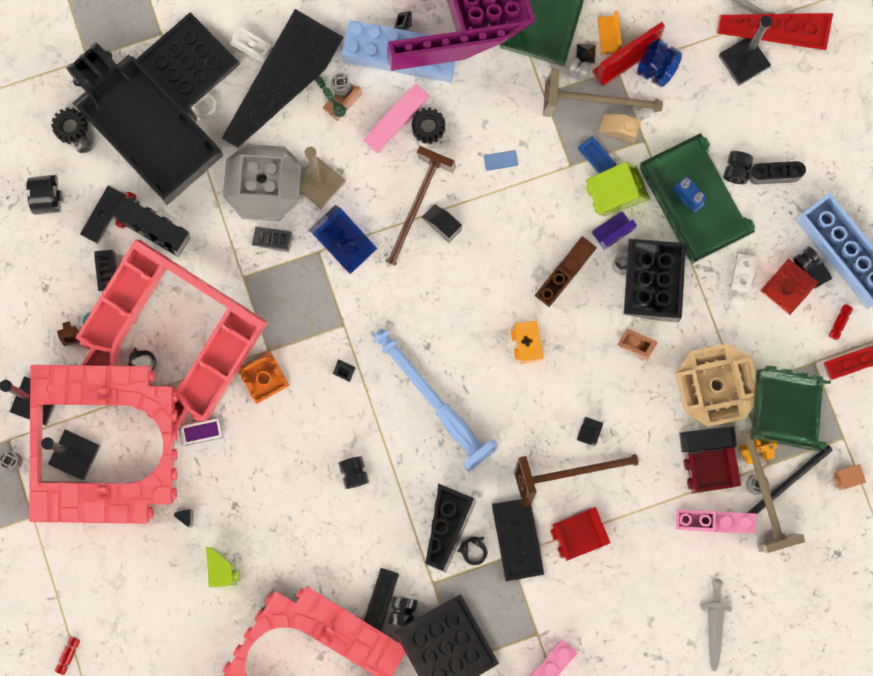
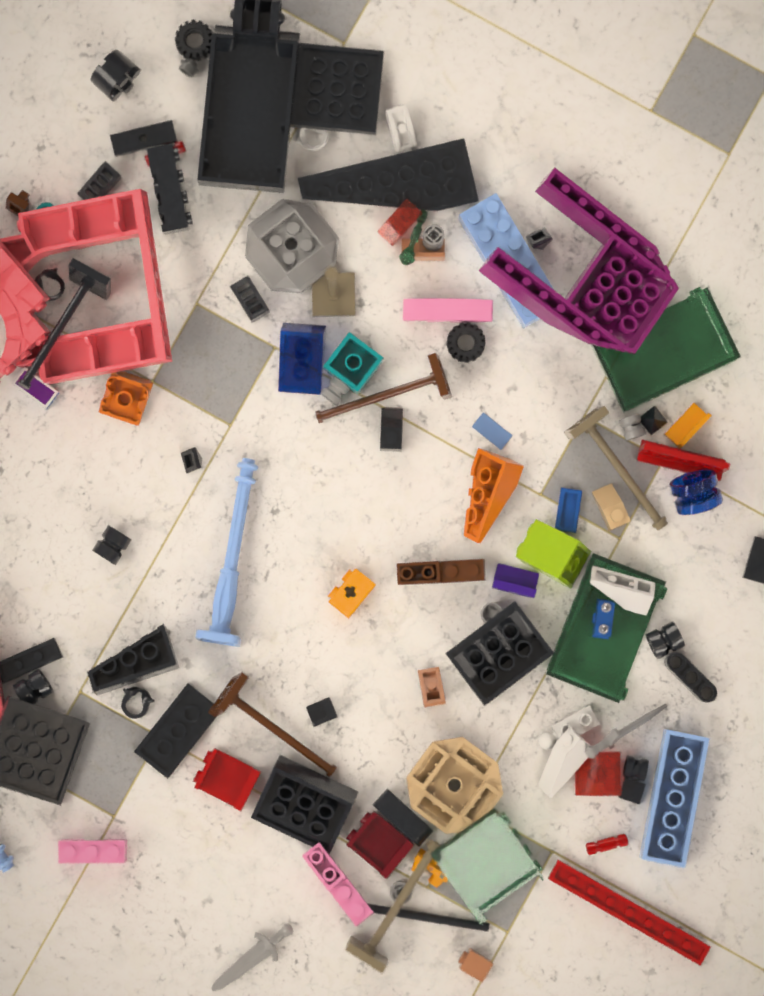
camera: 45 degrees right, 5 degrees up
(163, 331) = (88, 280): none -> black tile
(311, 98) = (399, 222): none -> clear red slope
(376, 207) = (353, 363): none -> teal brick
(384, 236) = (334, 392): none -> light grey wheel
(539, 192) = (492, 486): none -> orange wedge
(642, 497) = (304, 804): none -> black slope
(685, 162) = (627, 591): none -> white slope
(762, 300) = (563, 762): none -> white slope
(775, 256) = (611, 738): none -> light grey sword

